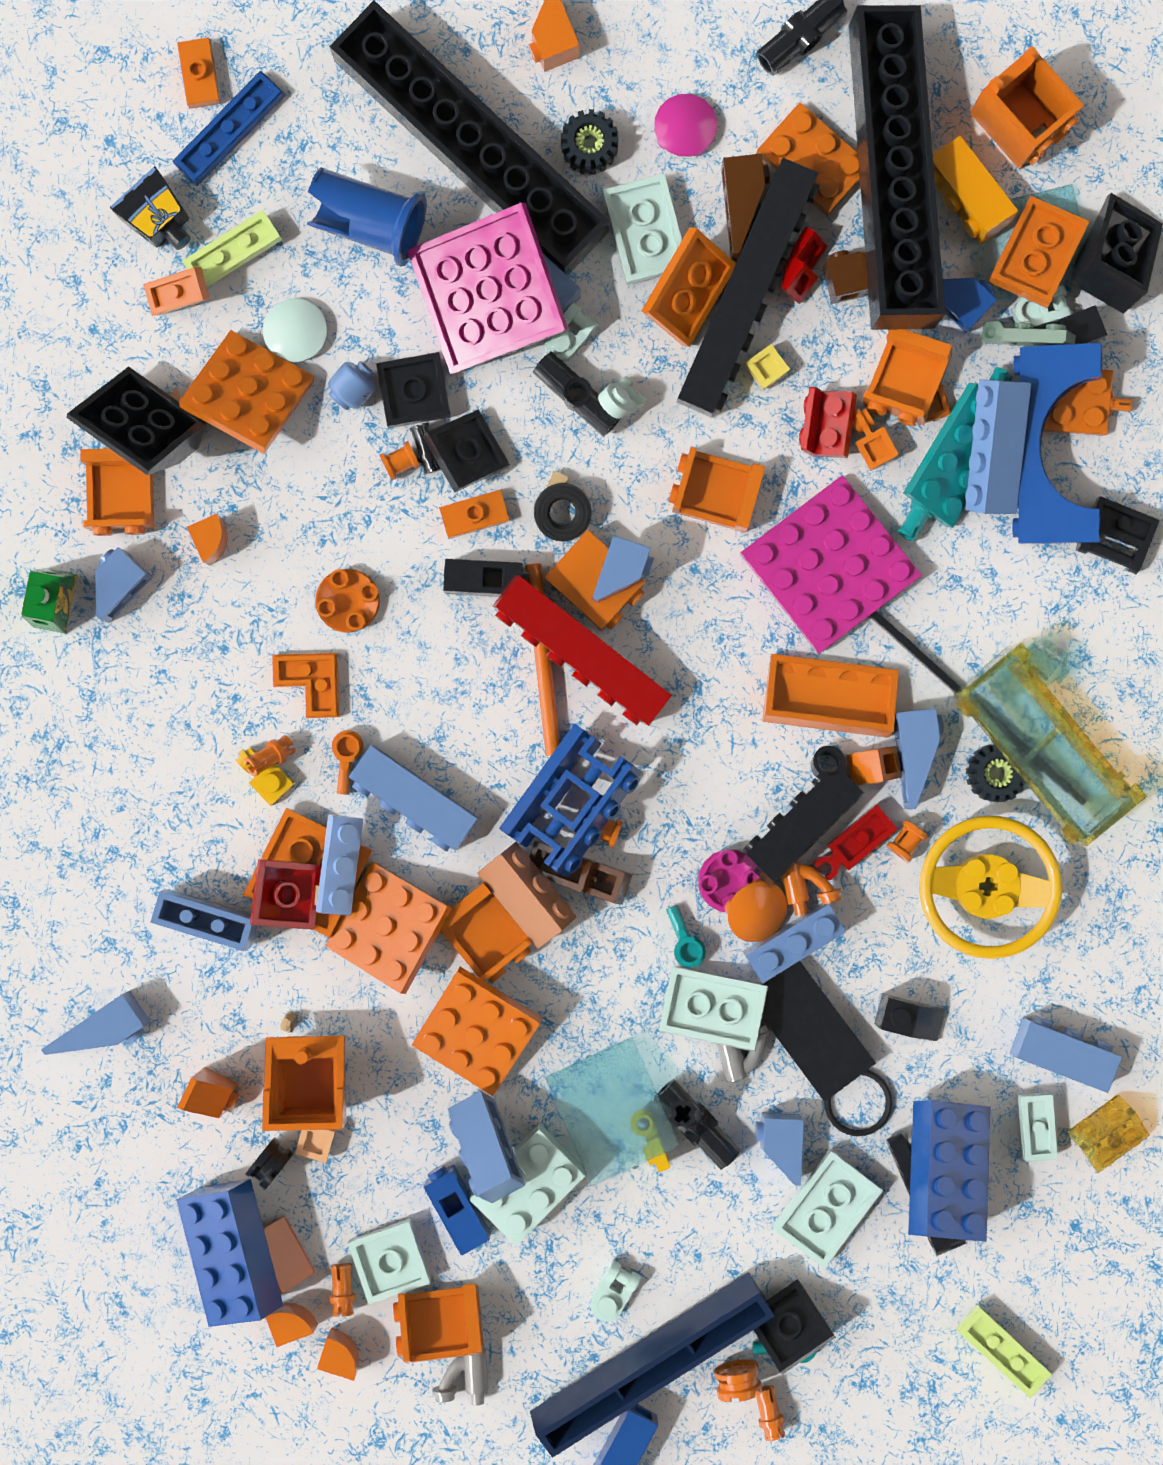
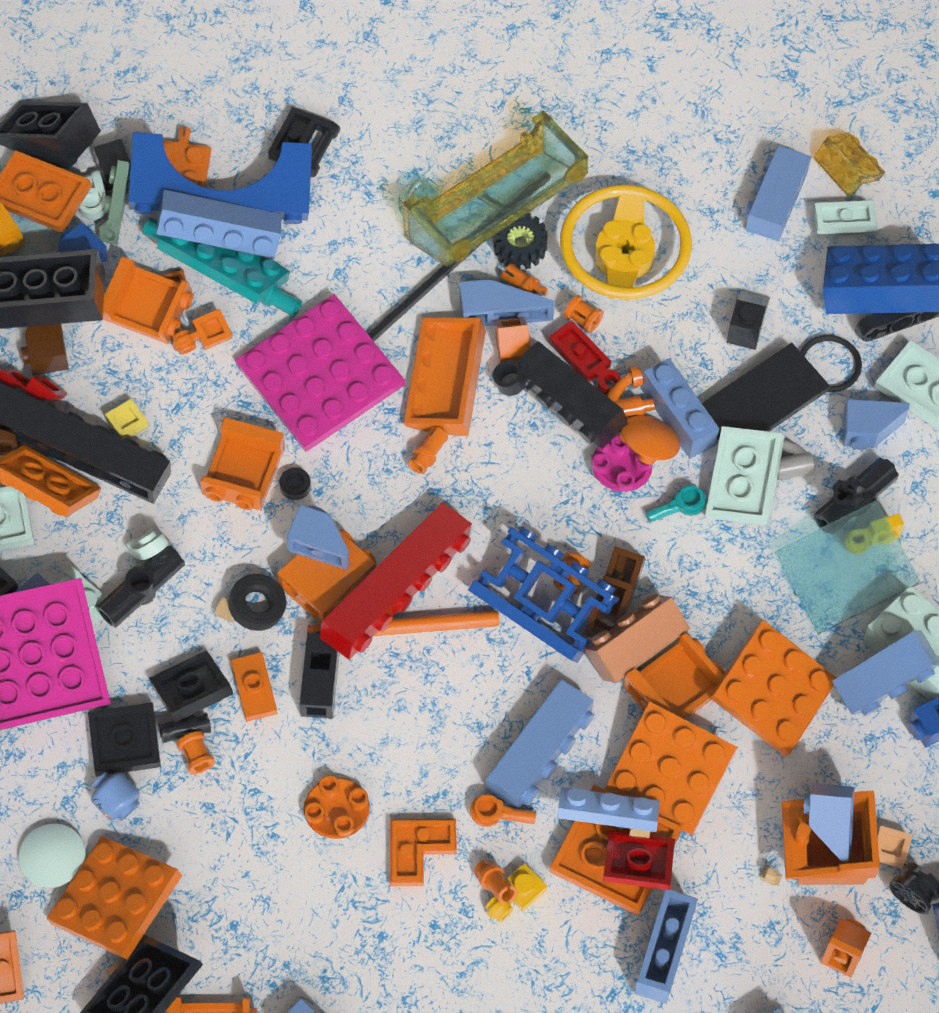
camera: 90 degrees left, 25 degrees down
(209, 538) = (266, 940): orange brick -> none
(317, 1085) = (832, 816): none -> medium blue slope
(700, 544) = (295, 483): none -> black tile
(739, 679) = (425, 454): none -> orange pin
(827, 423) = (185, 367): bracket -> none
(940, 781) = (523, 281): none -> orange pin

